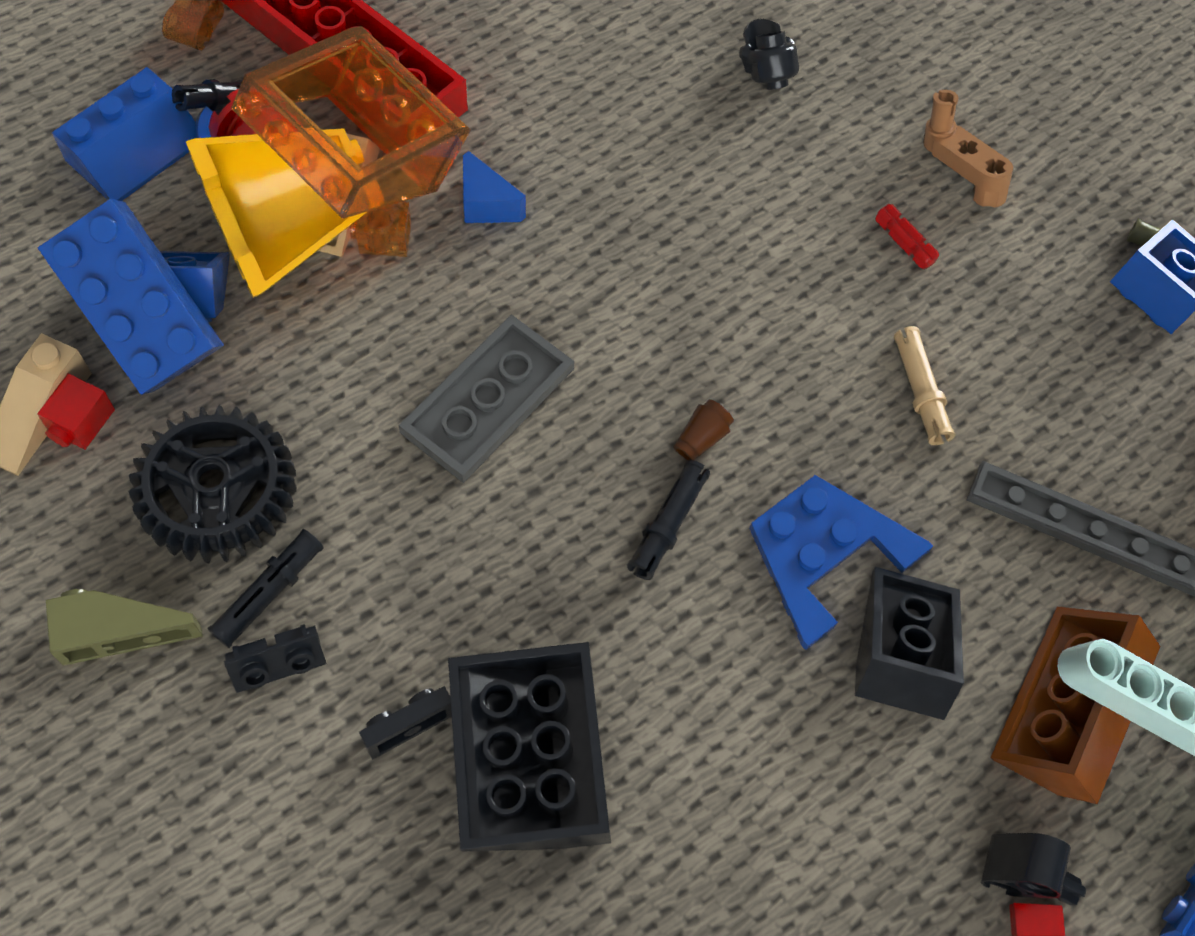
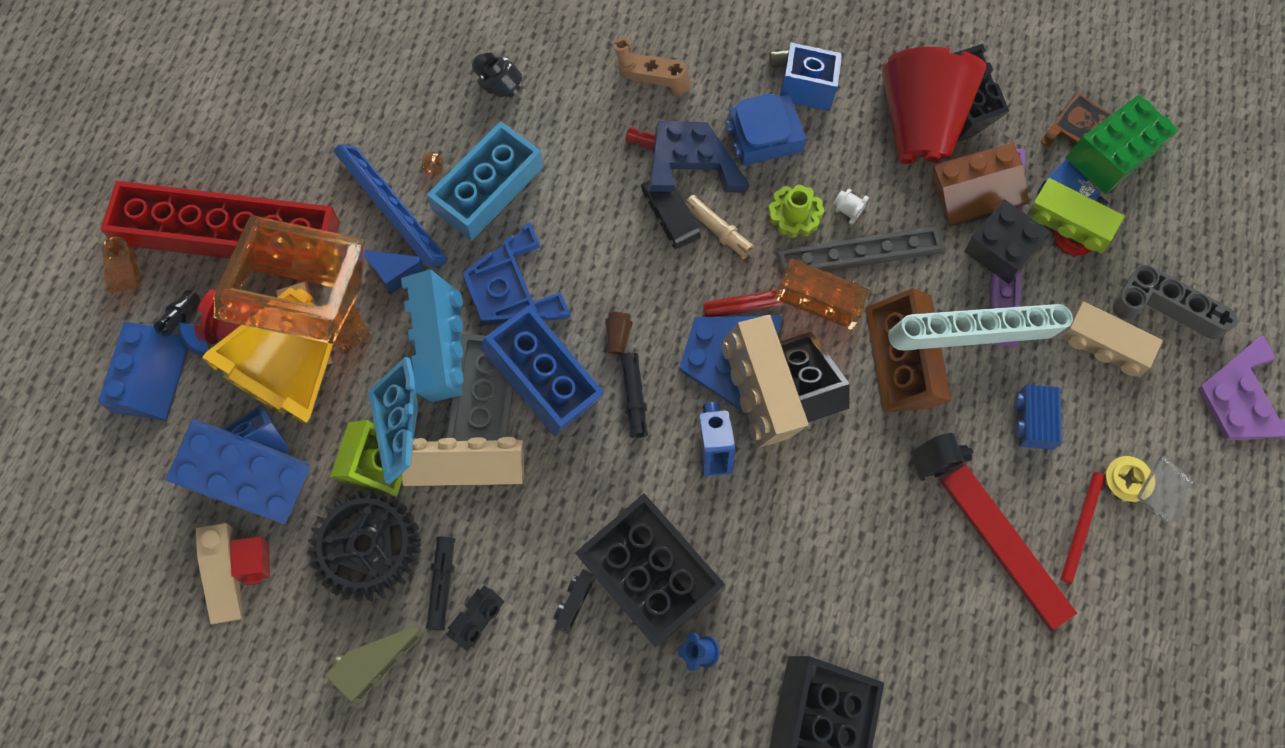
camera: 30 degrees left, 5 degrees up
(300, 389) = (360, 460): none -> lime slope
(358, 350) = (395, 417): none -> dark azure wedge
(399, 461) = (465, 462): none -> tan brick
(475, 292) = (435, 335): none -> dark azure wedge
(517, 899) = (699, 651): none -> blue brick
(537, 126) = (391, 205): none -> blue tile
(572, 412) = (541, 370): none -> blue brick
(596, 293) = (499, 285): none -> blue wing
(627, 102) = (437, 161): none -> clear orange hinge
(668, 159) = (485, 180): none -> dark azure brick
(731, 642) = (716, 440): none -> blue torso
(847, 606) = (763, 381): none -> tan brick
(876, 330) = (674, 216): none -> black beam
(893, 498) = (741, 304): none -> red axle
(952, 270) = (691, 147): none -> dark blue wing
(1005, 548) = (821, 293): none -> clear orange brick
(1041, 427) = (795, 211): none -> lime plant
(1067, 304) = (765, 129): none -> blue brick
(1122, 463) = (850, 205): none -> white brick

